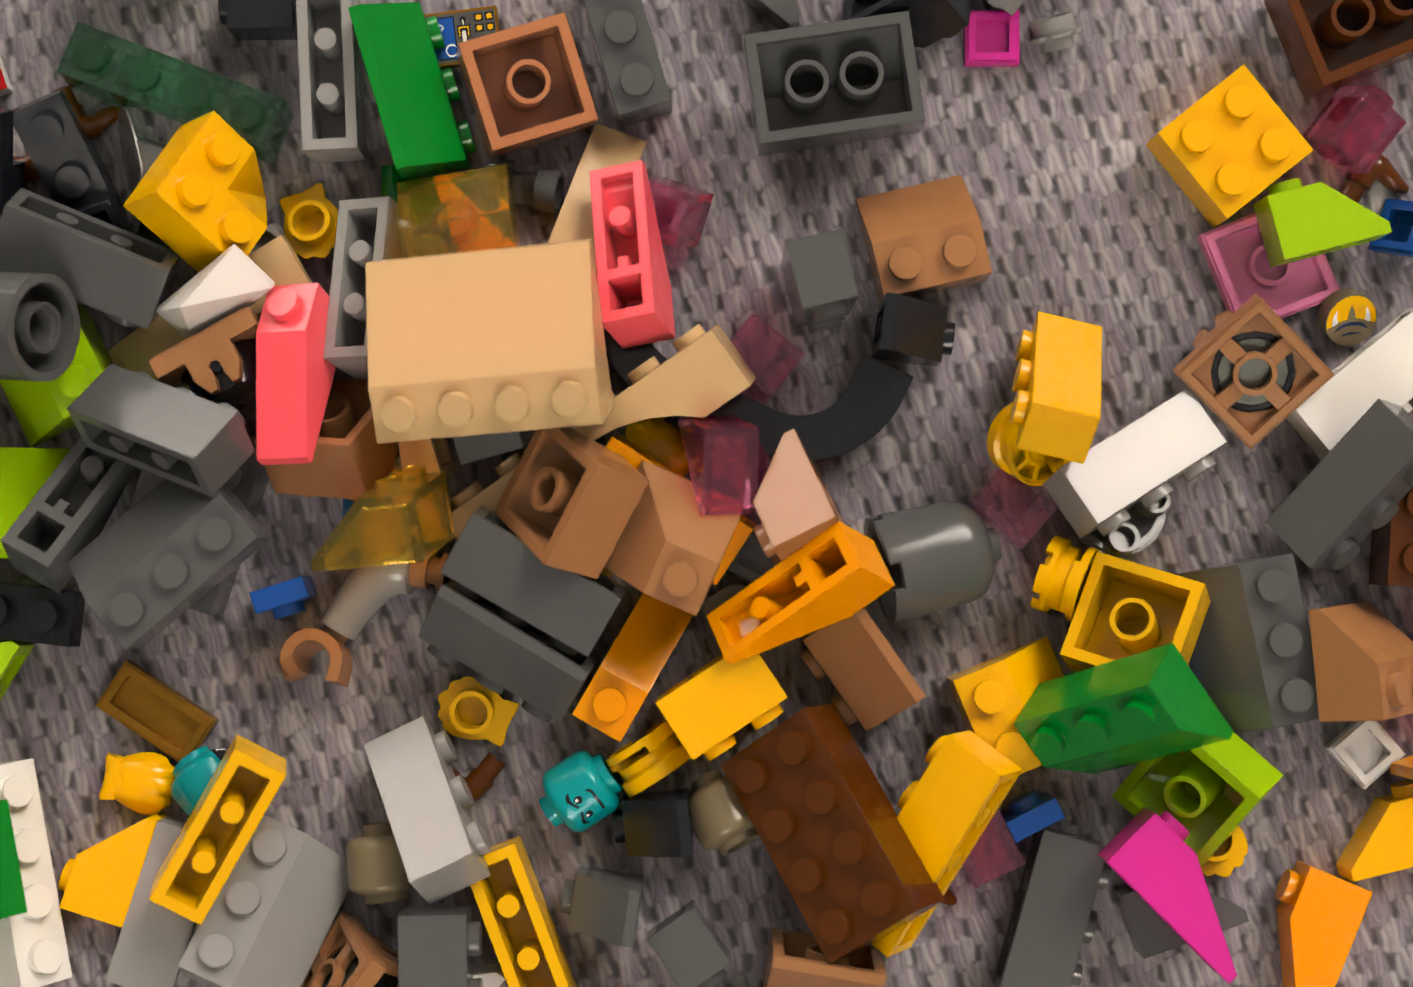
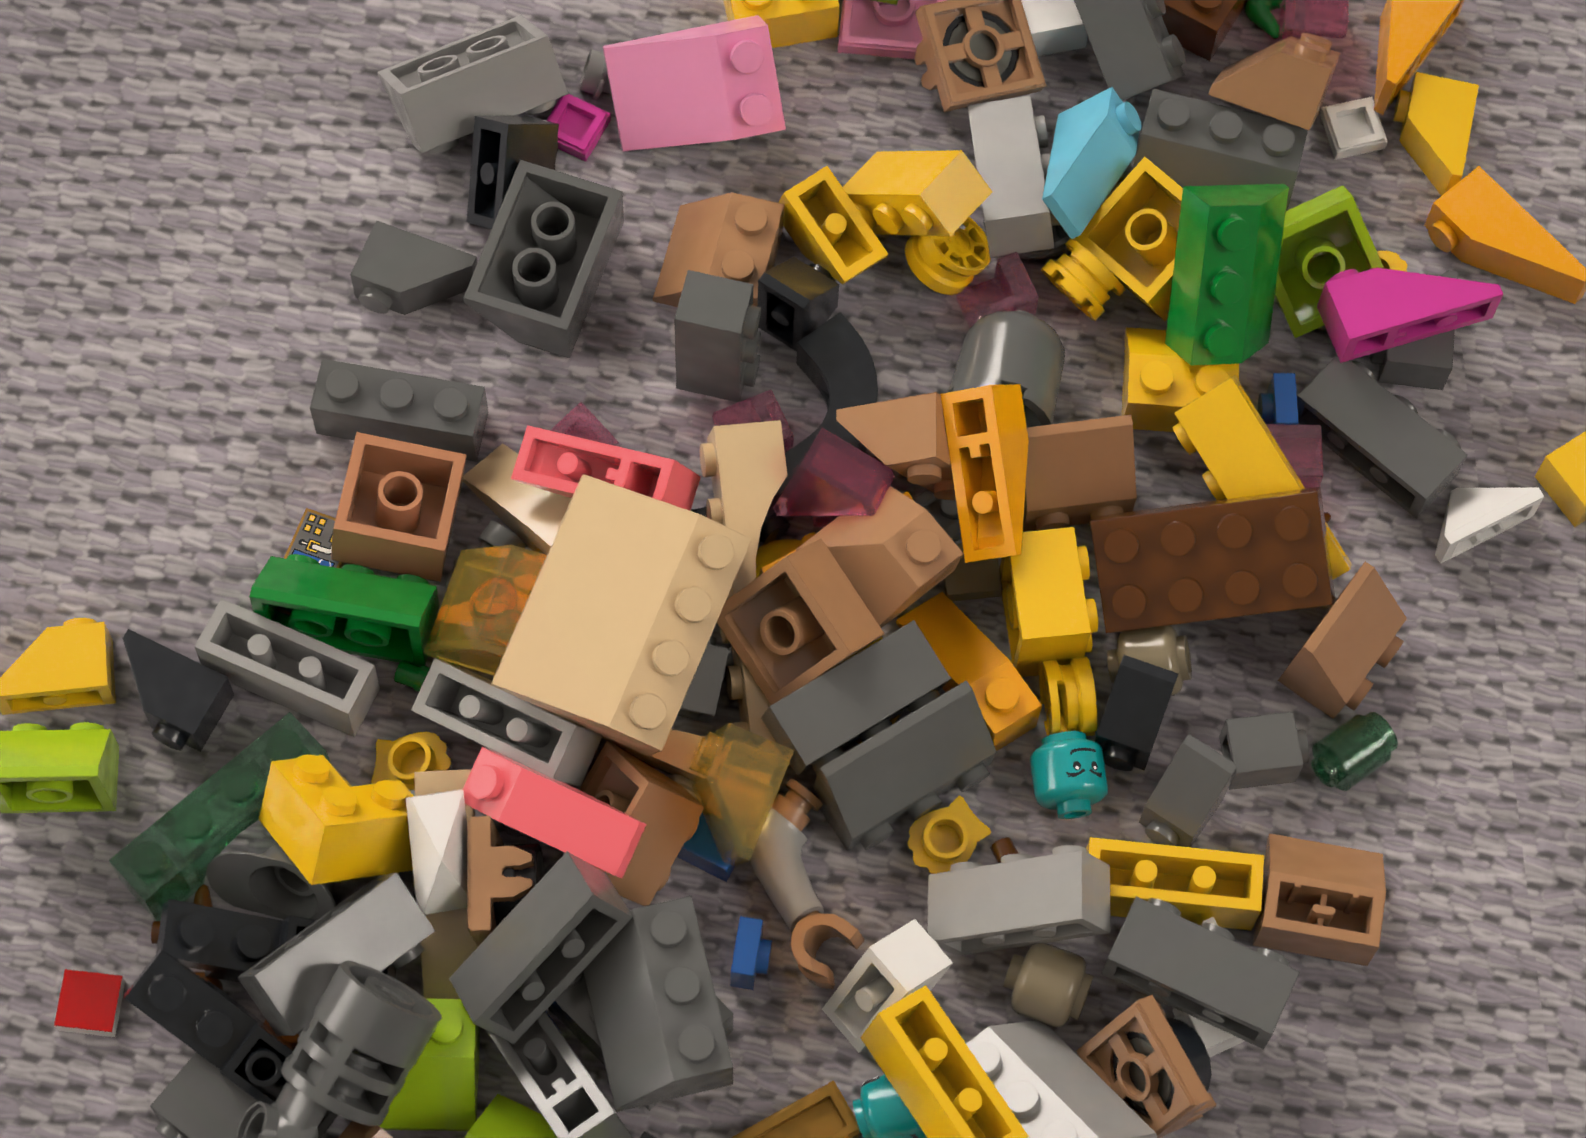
camera: 70 degrees left, 20 degrees down
(312, 730) = (885, 976): none -> white slope
(995, 327) = (830, 227): none -> yellow slope
(1078, 128) = (695, 85): none -> bright pink slope
(1185, 528) = (1088, 157): none -> medium azure slope

